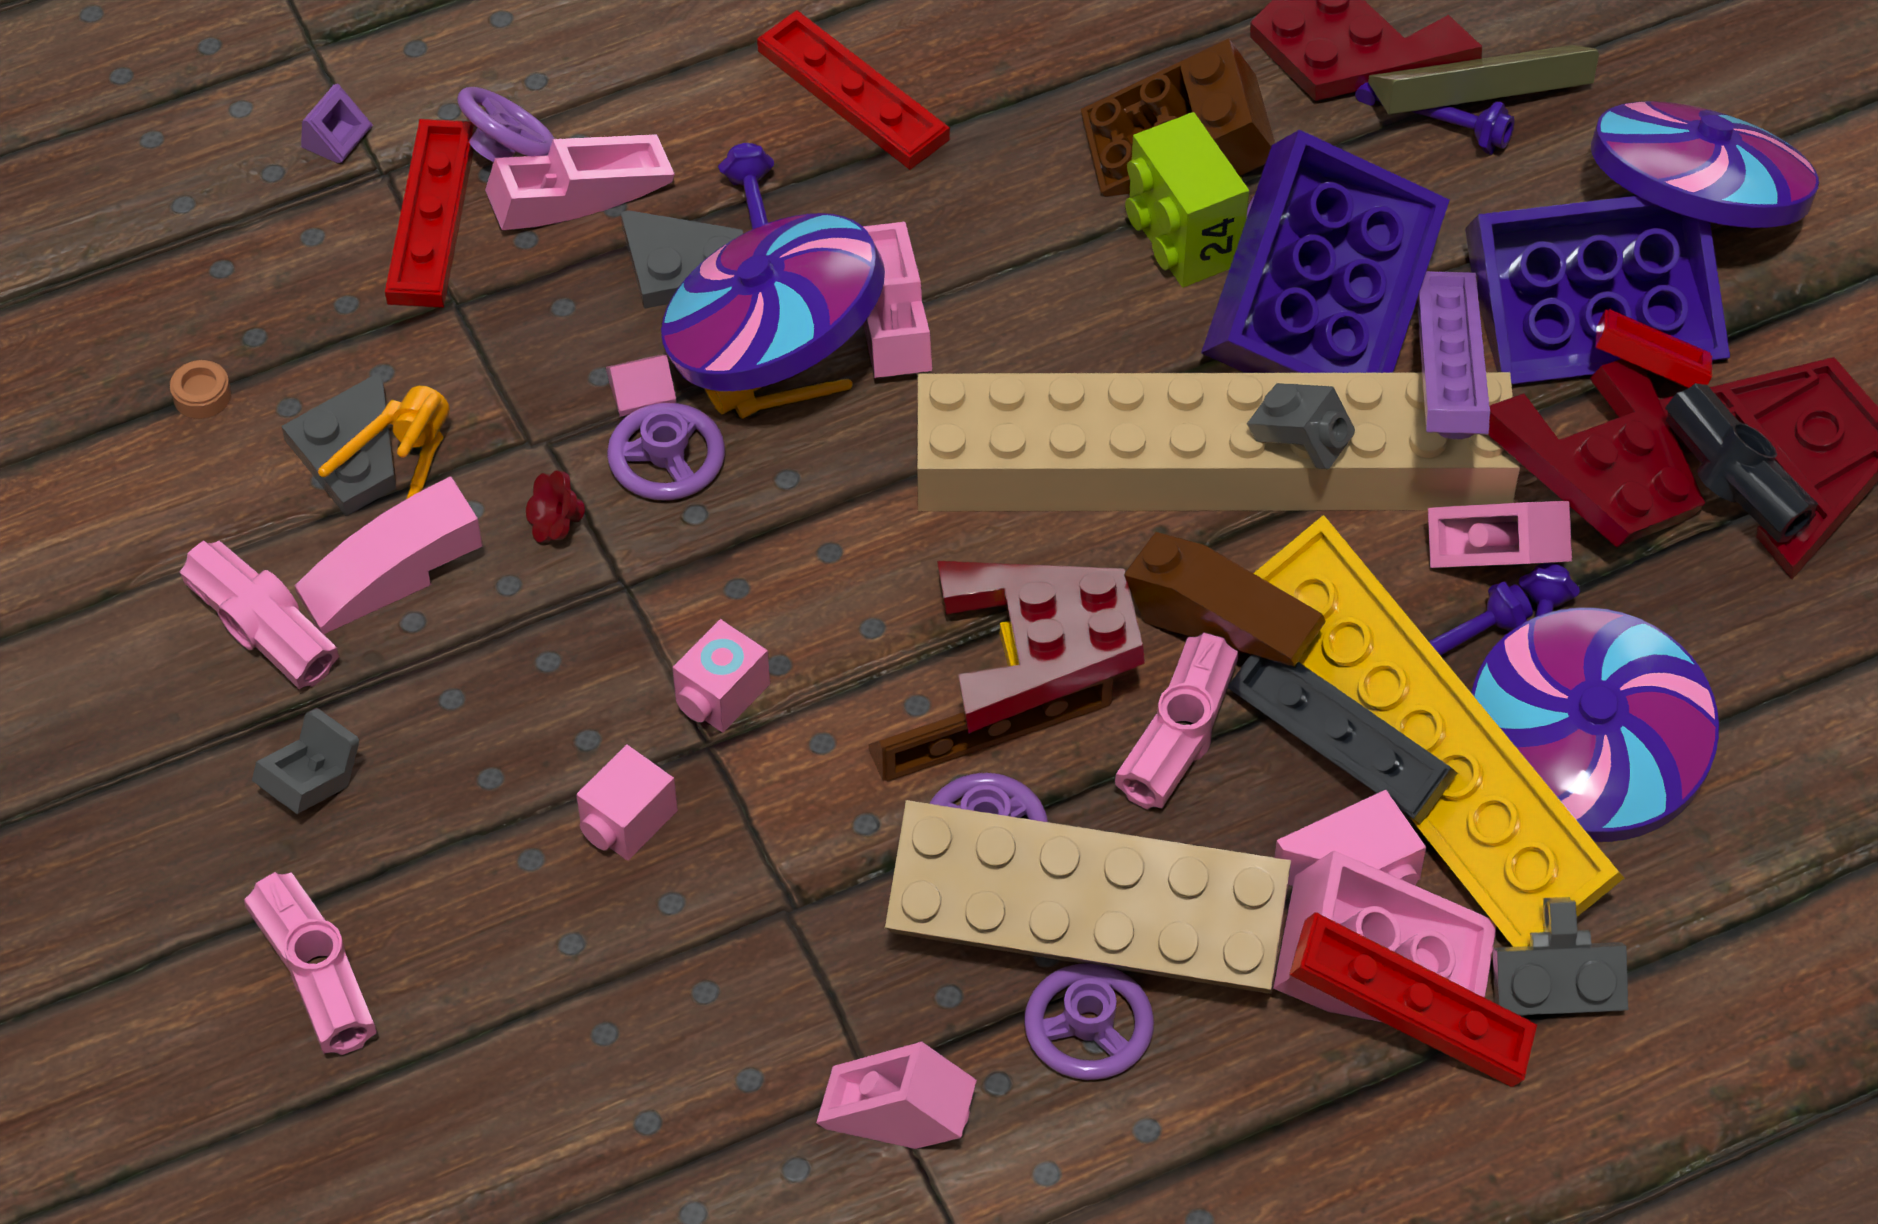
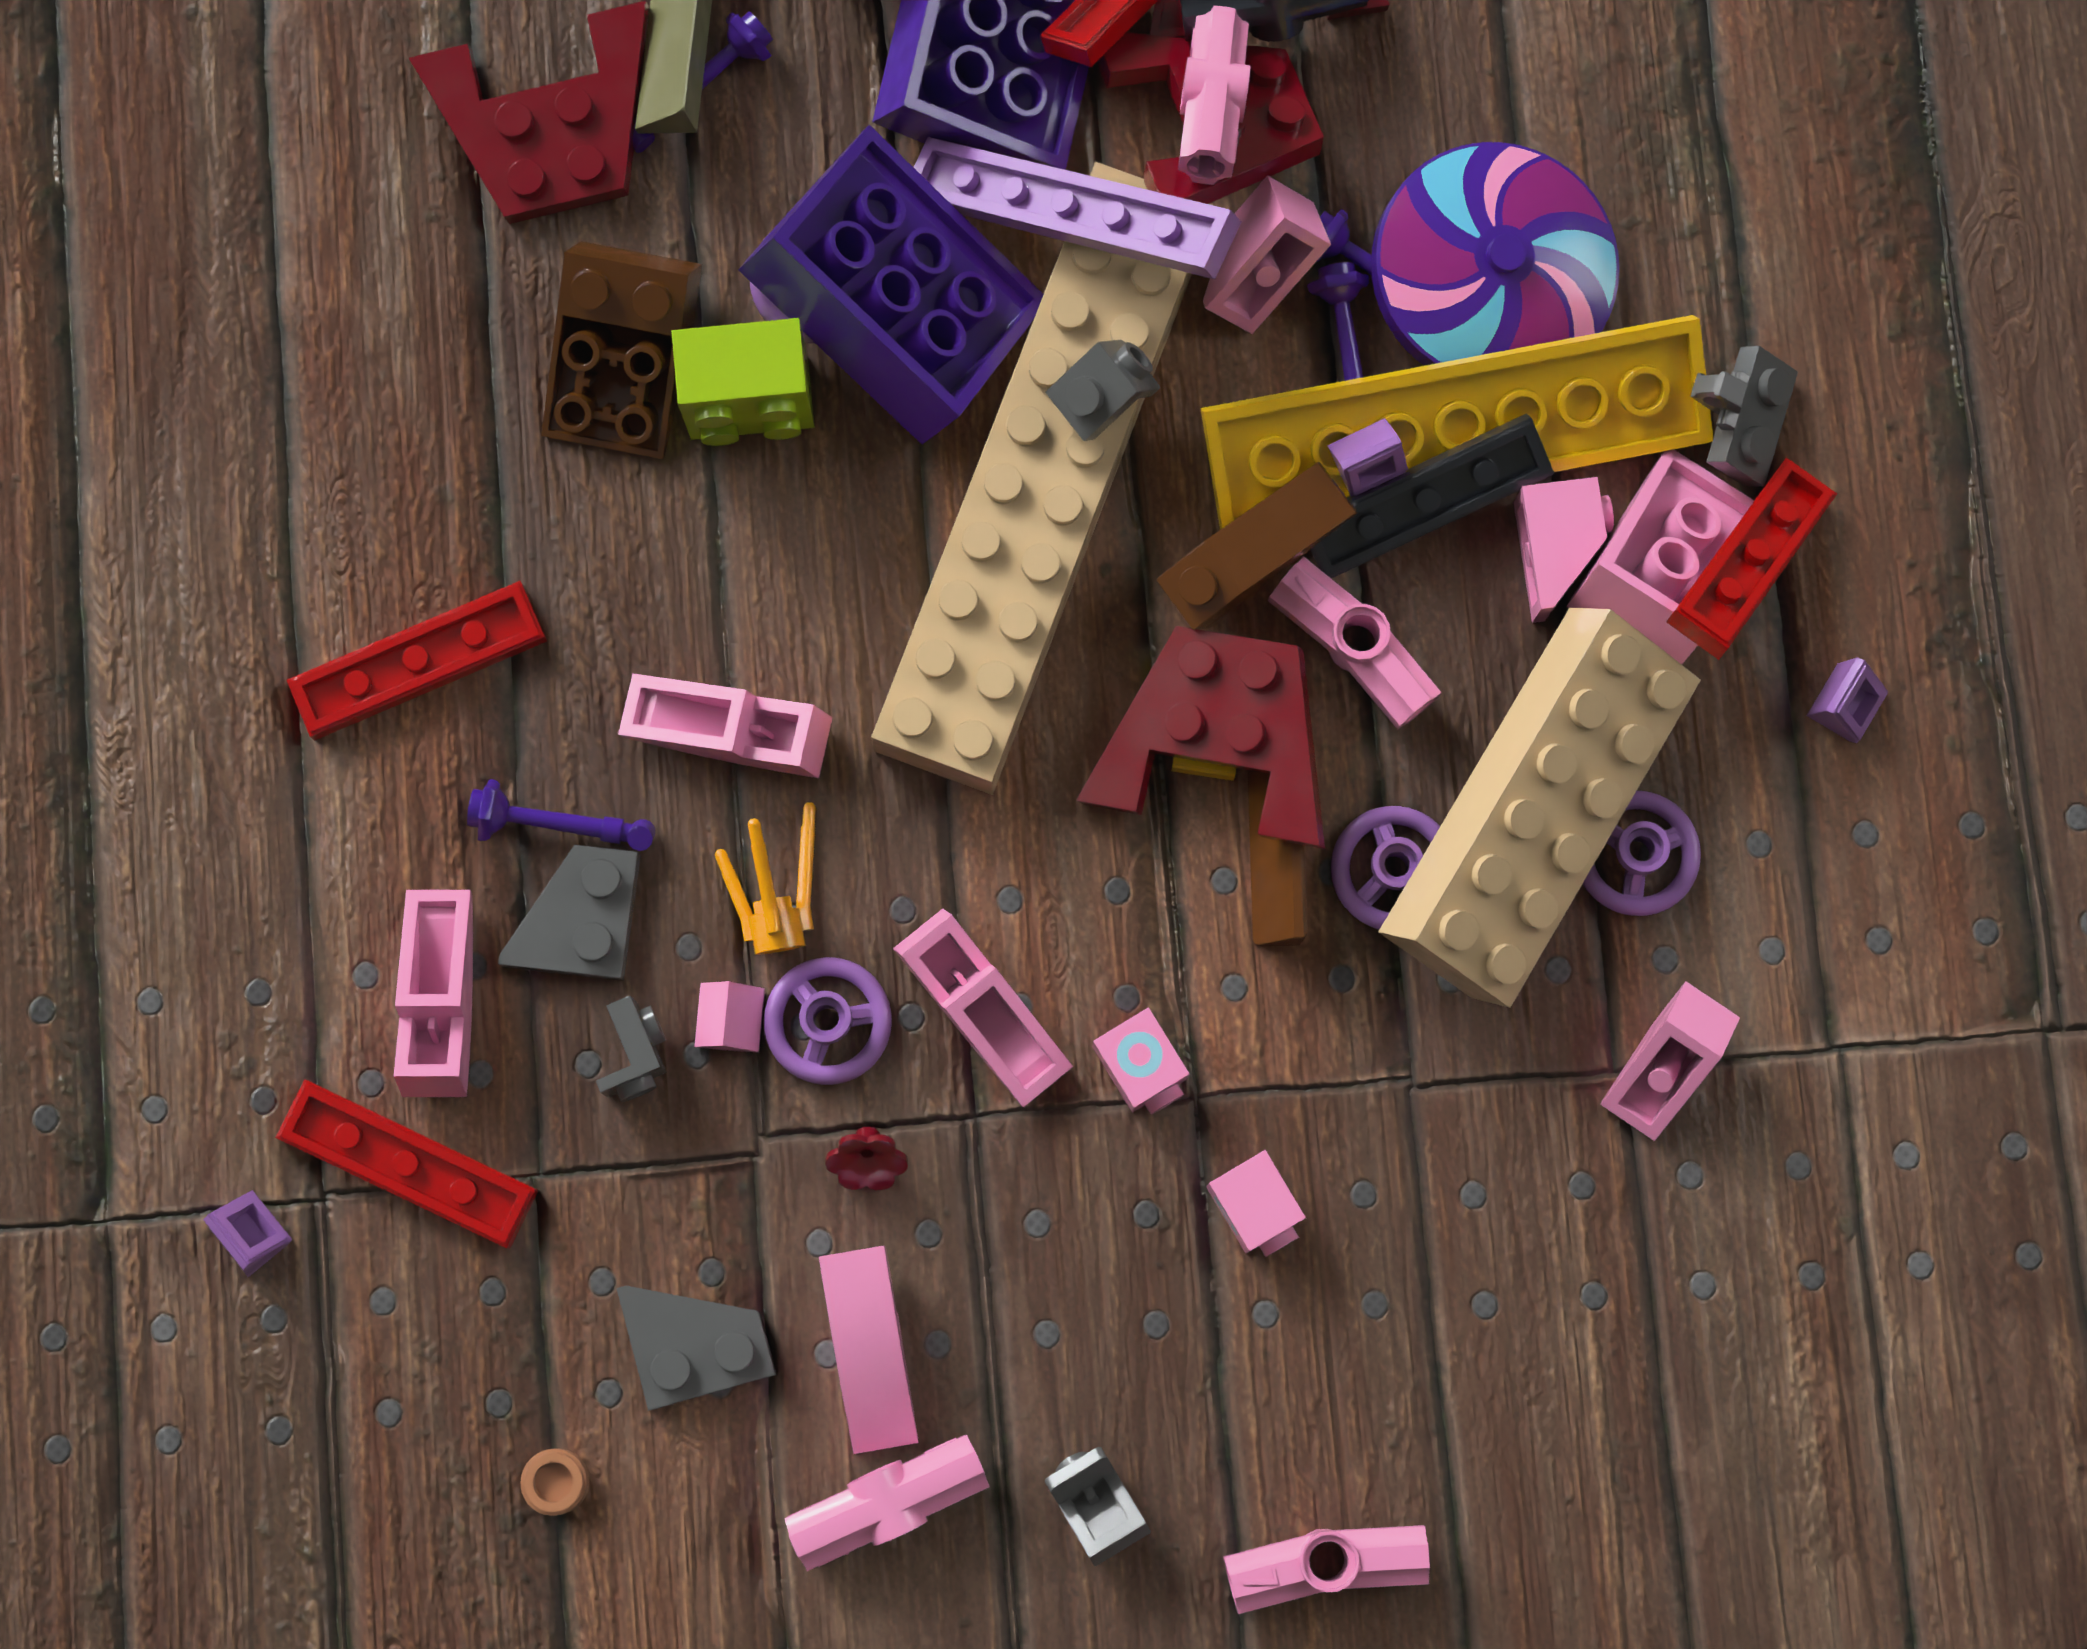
camera: 70 degrees left, 25 degrees up
(414, 423) = (707, 1266): light orange plant -> none
(502, 126) = (339, 1055): medium lavender piece -> none
(587, 321) = (639, 1035): none -> dark grey bracket
(722, 547) = (983, 1007): none -> bright pink slope
(773, 302) = (726, 850): dish -> none
(1323, 1155) = (1849, 699): none -> medium lavender slope
(1348, 661) = (1369, 457): none -> medium lavender slope
(1611, 418) = (1214, 95): none -> bright pink piece

